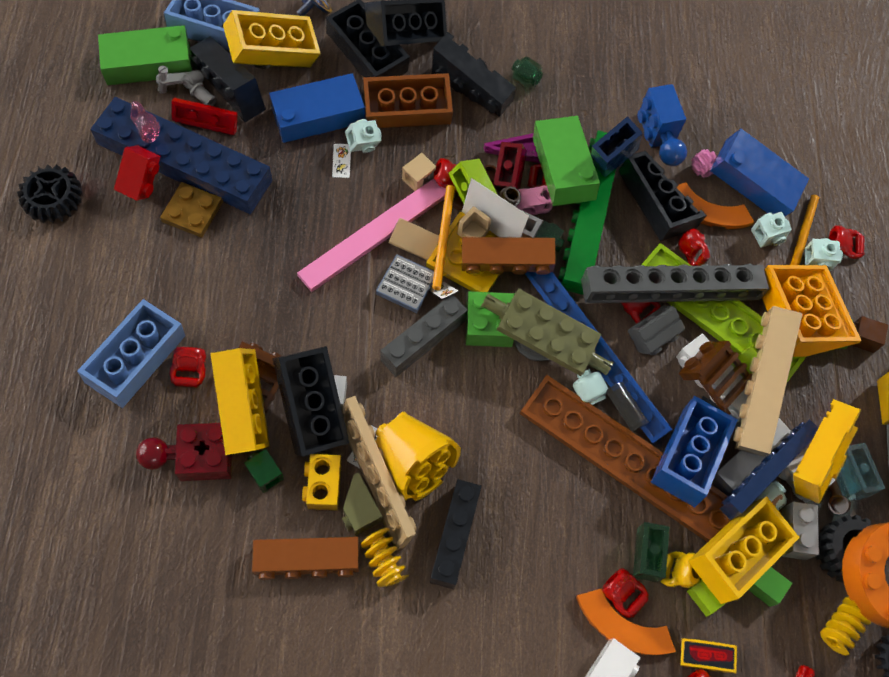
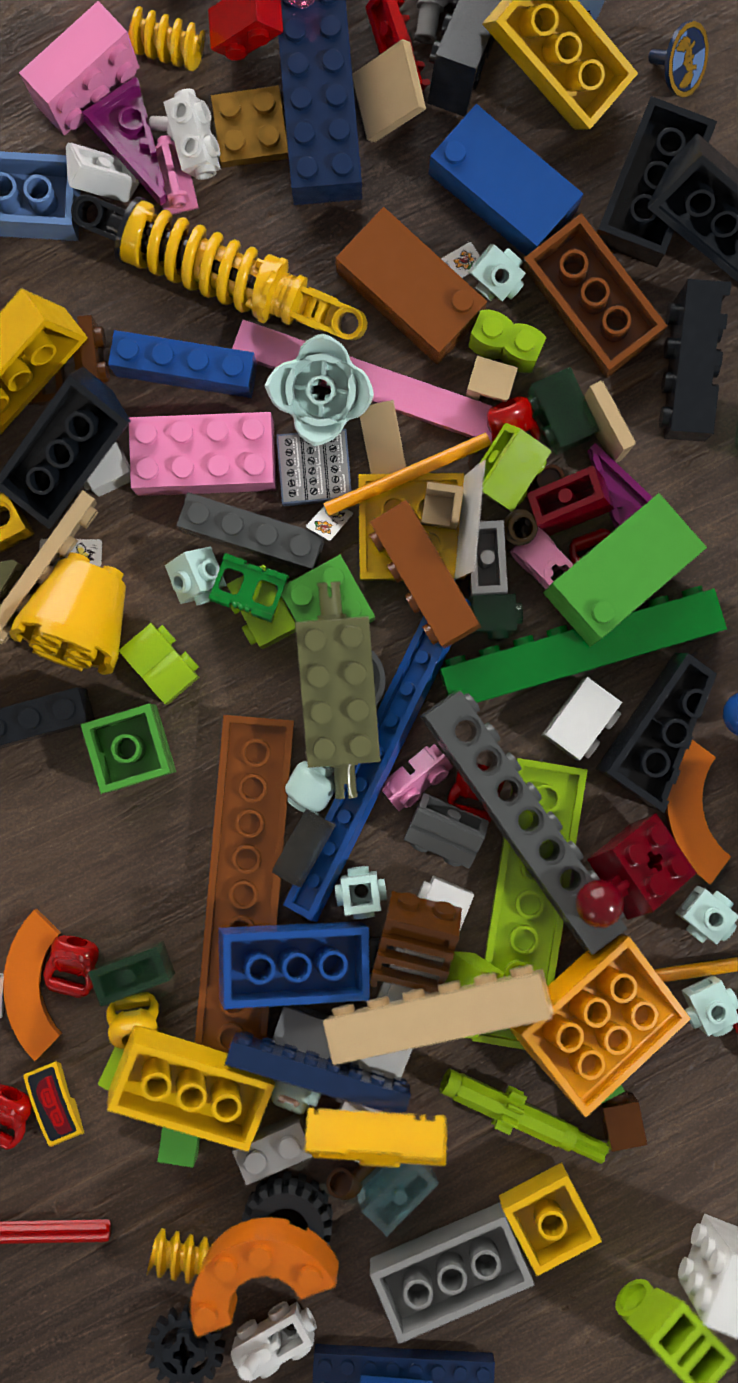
camera: 75 degrees right, 20 degrees up
(96, 269) = (80, 68): none -> bright pink brick
(110, 220) = (166, 41): none -> yellow piece
(149, 270) = (124, 128): none -> magenta wing
(161, 294) = (99, 173): none -> white slope
(170, 236) = (189, 127): none -> white brick
(188, 360) = (43, 265): red piece -> none
(189, 263) = (177, 183): none -> bright pink hinge
(230, 127) = (388, 91): none -> tan tile
(259, 264) = (214, 267): none -> piece
(301, 315) = (183, 364): none -> blue brick
(340, 179) = (410, 285): none -> dark orange brick
(363, 332) = (202, 454): none -> bright pink brick
(377, 235) = (293, 389): none -> light aqua brick
(400, 152) = (498, 338): none -> lime brick
(430, 378) = (194, 575): none -> light aqua brick
(456, 146) = (562, 411): none -> clear green brick
(463, 354) = (244, 598): none -> green piece
(470, 355) = (259, 630): none -> lime brick
(470, 429) = (159, 662): none -> lime brick
(479, 128) = (613, 433): none -> tan tile
(511, 474) = (128, 748): none -> bright green brick
(613, 322) = (430, 769): none -> bright pink hinge
(616, 146) = (672, 629): dark blue brick -> none
(630, 231) = (583, 719): none -> white brick
(669, 393) = (360, 906): none -> light aqua brick
(690, 244) = (611, 815): red piece -> none
(733, 244) = (635, 874): none -> dark red brick
(837, 386) = (511, 1111): none -> lime piece

